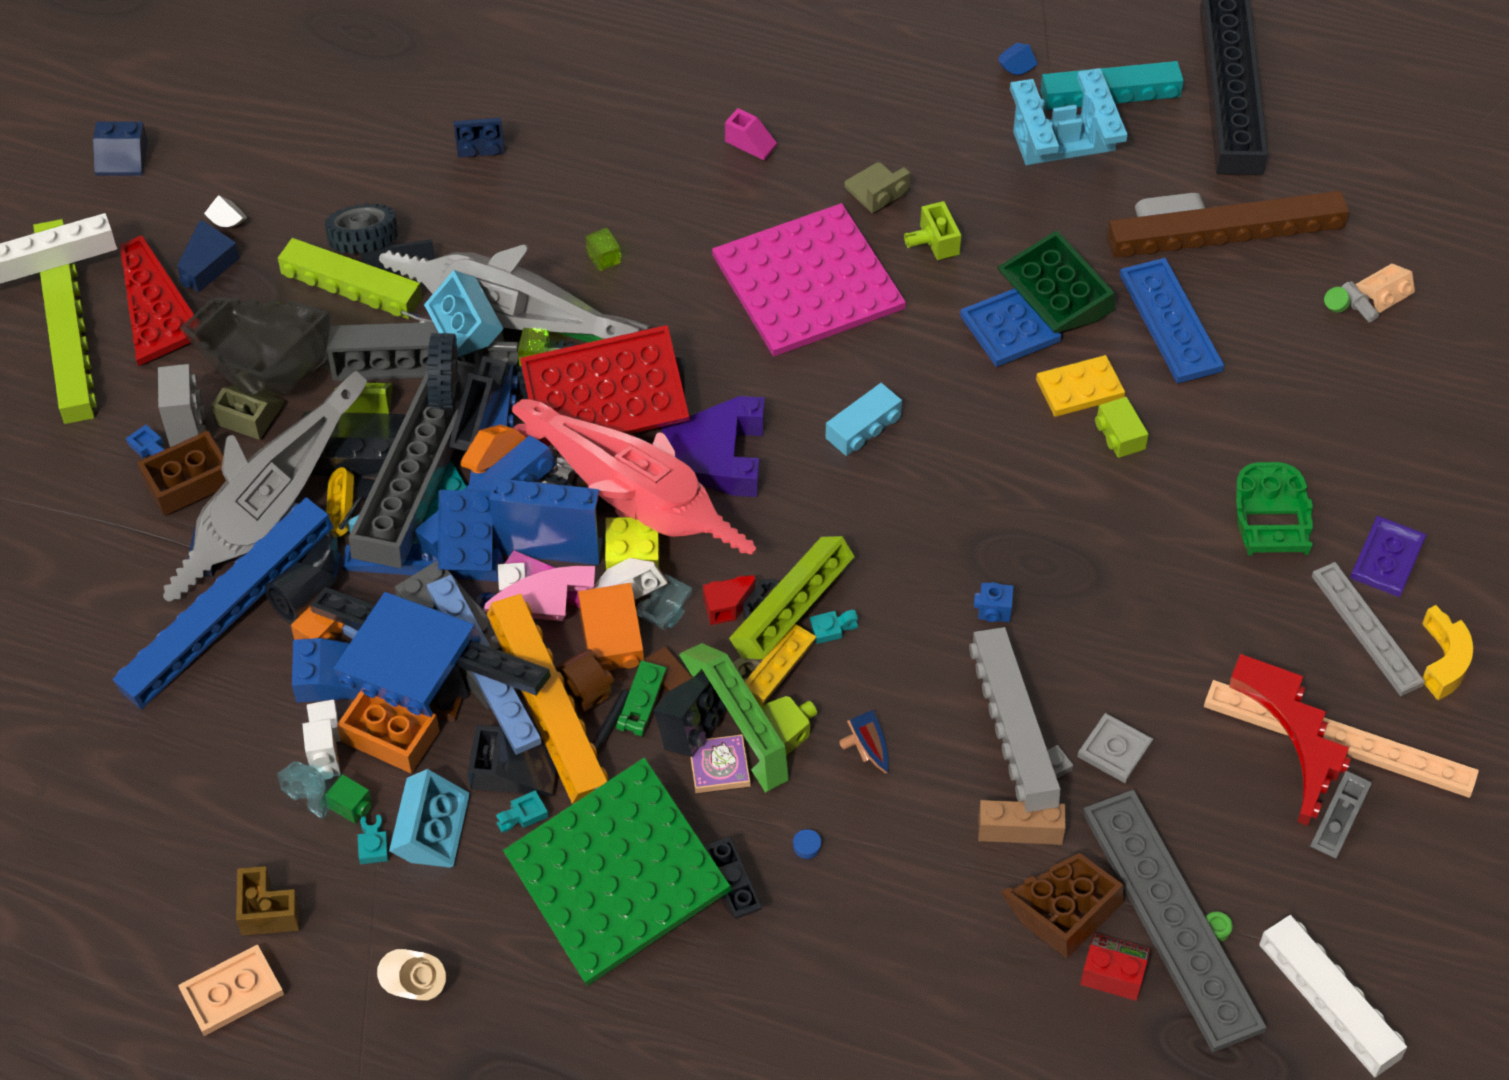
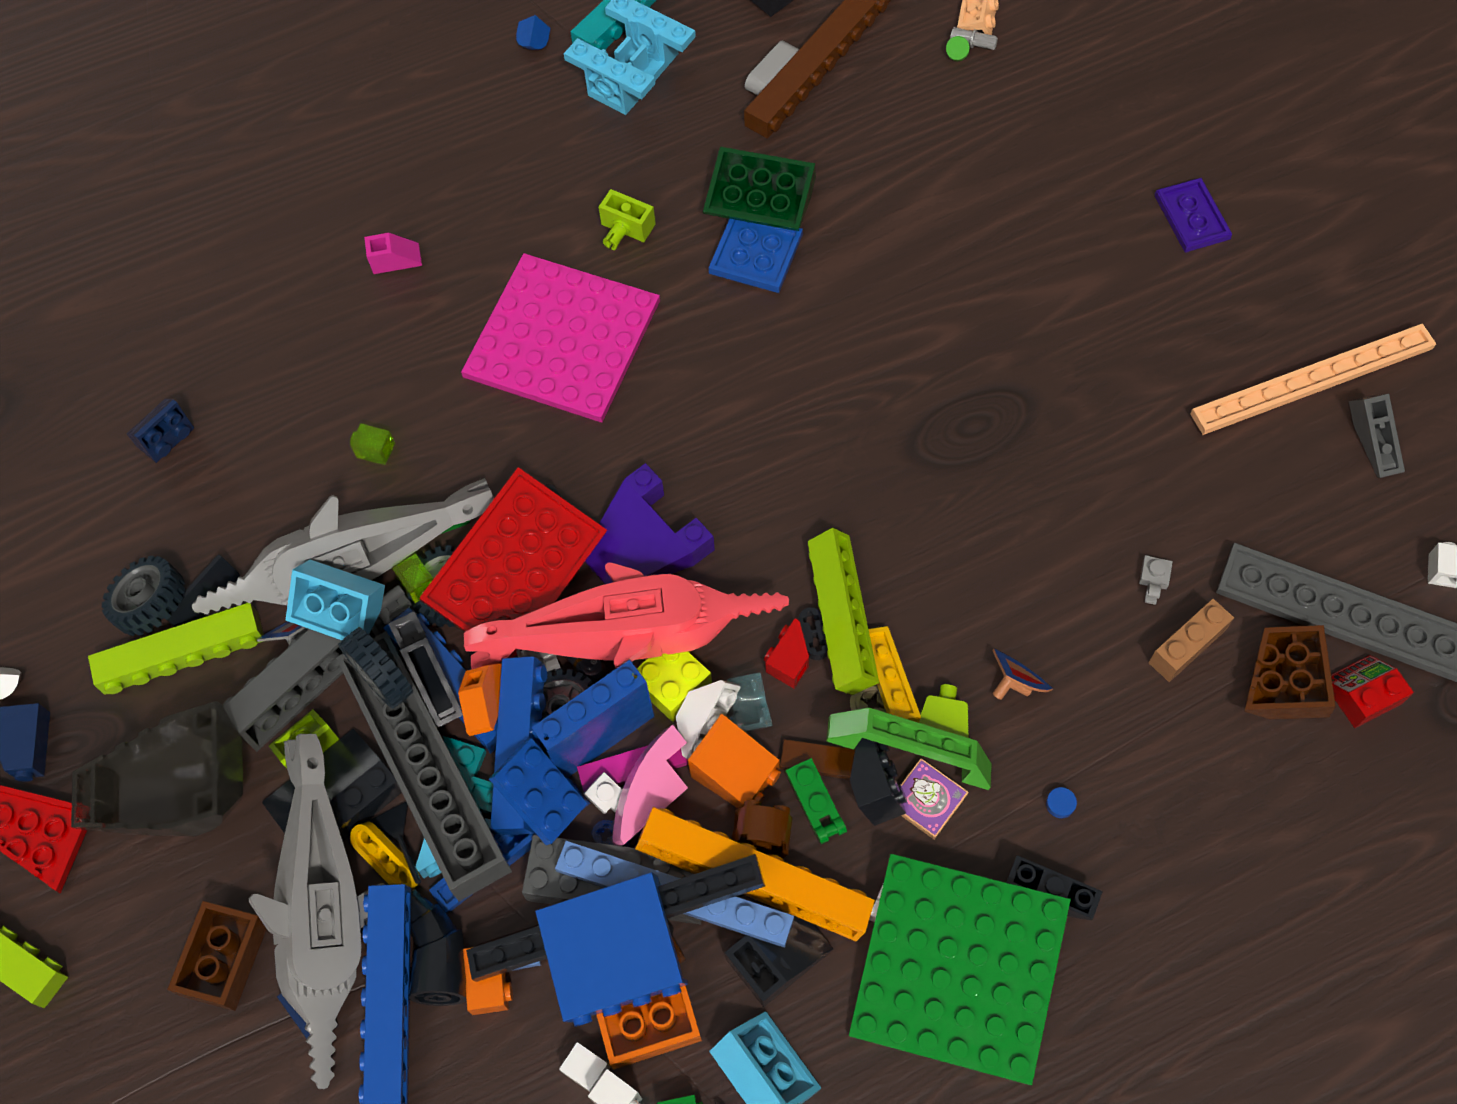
camera: 40 degrees left, 10 degrees up
(145, 442) = (147, 959): blue plate -> none
(180, 403) = (155, 901): light grey brick -> none
(245, 411) = (211, 852): olive slope -> none
(314, 673) = (532, 1019): blue slope -> none
(525, 810) = (830, 984): teal plate -> none
(610, 721) = (808, 841): black bar -> none
(830, 627) = (885, 609): teal plate -> none
(863, 419) = (732, 417): medium azure brick -> none
(878, 186) = (537, 218): olive bracket -> none
(994, 602) = (986, 481): blue brick -> none
(1015, 720) = (1110, 563): light grey brick -> none
(1080, 385) = (854, 258): yellow plate -> none
(1115, 748) = (1184, 521): light grey plate -> none
(1121, 427) = (921, 266): lime brick -> none
(1171, 320) = (863, 154): blue plate -> none
(1220, 925) = (1393, 591): bright green tile -> none
(1273, 490) = (1072, 227): green slope -> none
(1281, 695) = (1297, 391): red arch -> none
(1368, 629) = (1238, 280): light grey tile -> none
(1447, 673) = (1316, 249): yellow arch -> none

